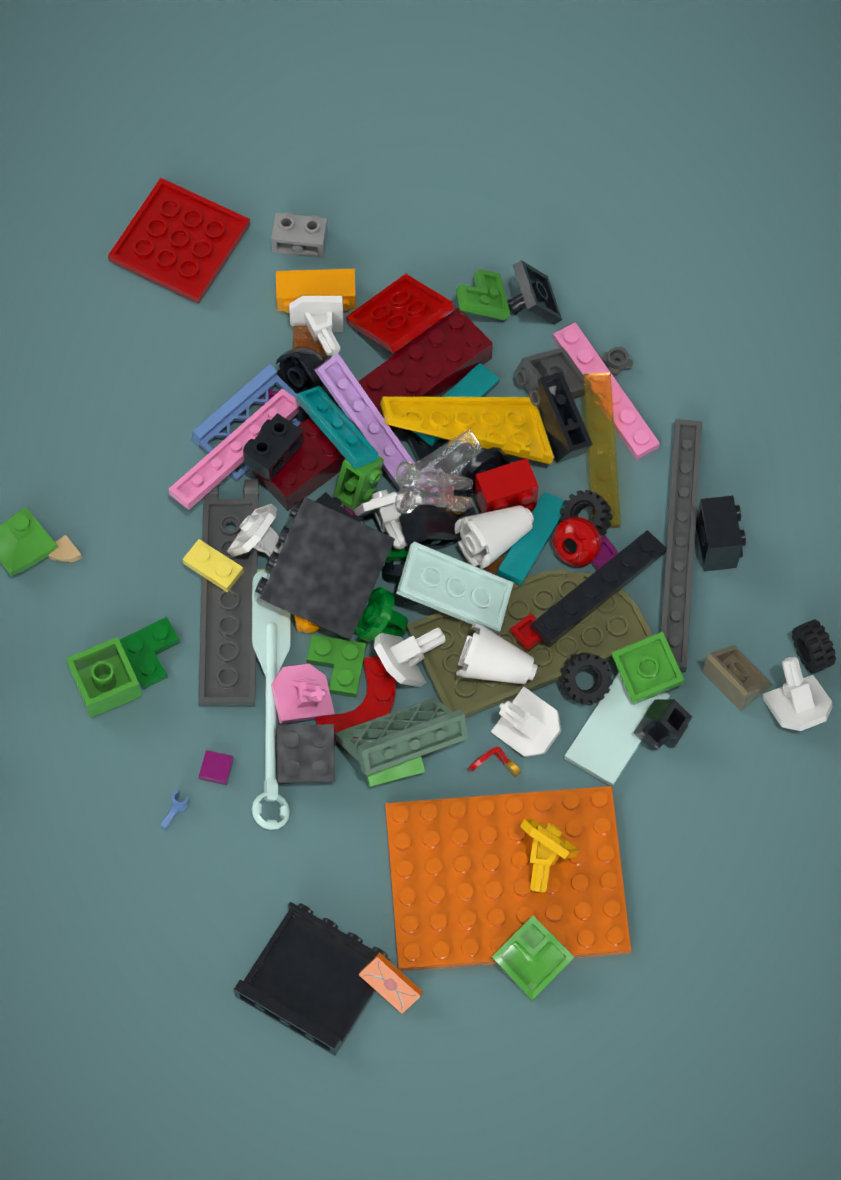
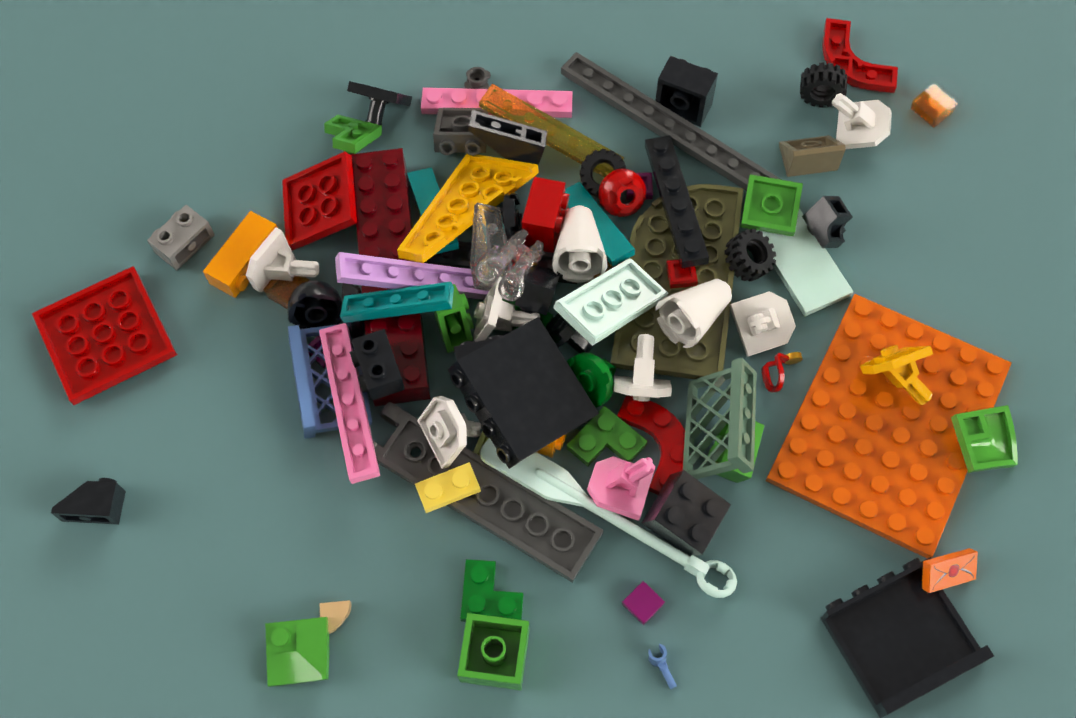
camera: 55 degrees left, 0 degrees up
(40, 328) = (92, 503): none -> black slope

